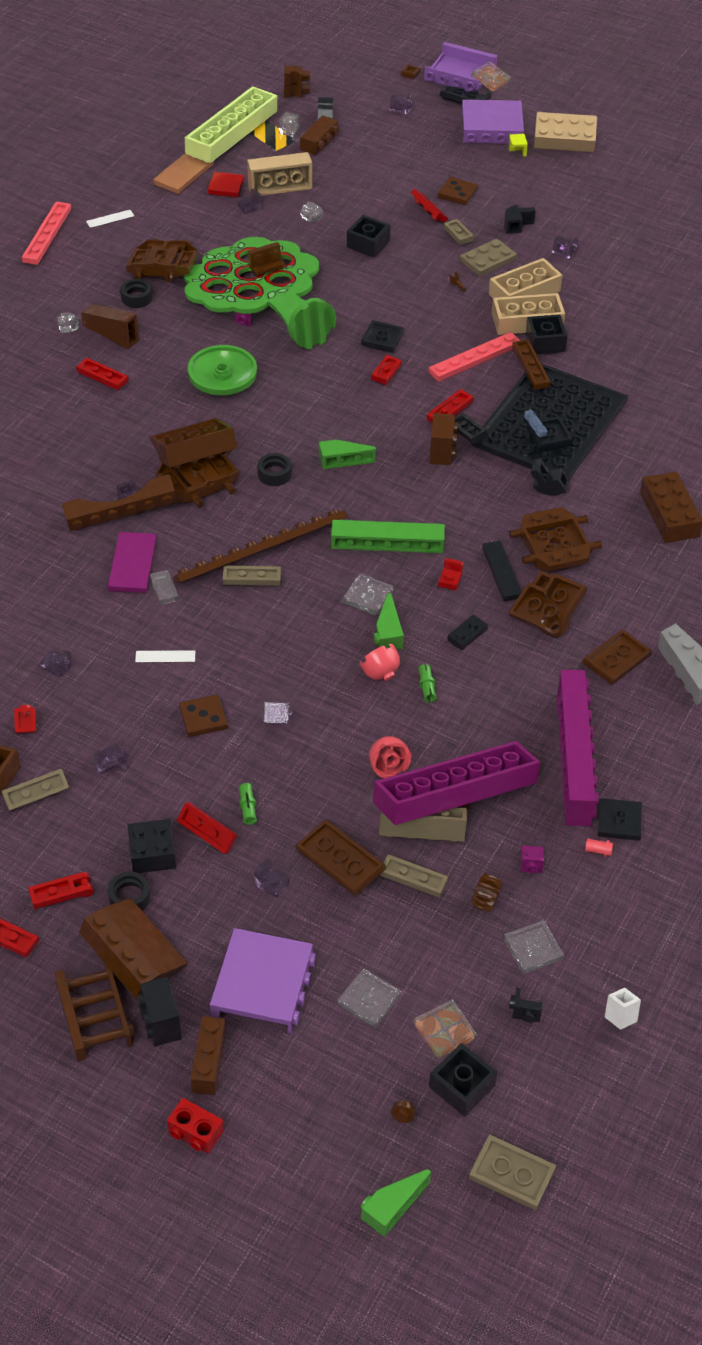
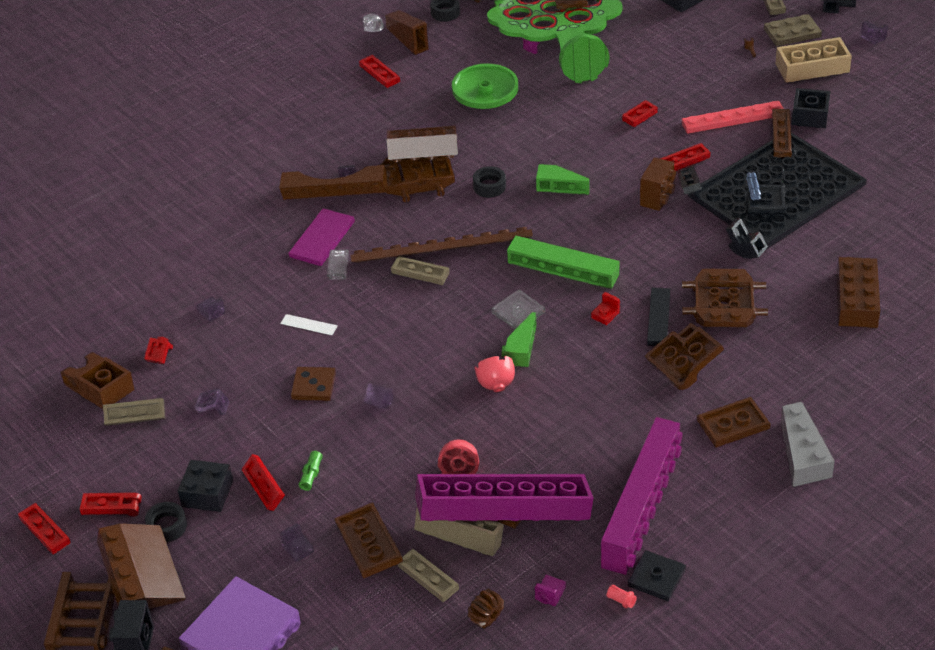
camera: 25 degrees right, 5 degrees down
(382, 336) = (651, 83): black plate -> none
(427, 683) = (532, 403): bright green pin -> none
(467, 632) = (596, 365): black plate -> none
(512, 312) = (785, 80): tan brick -> none

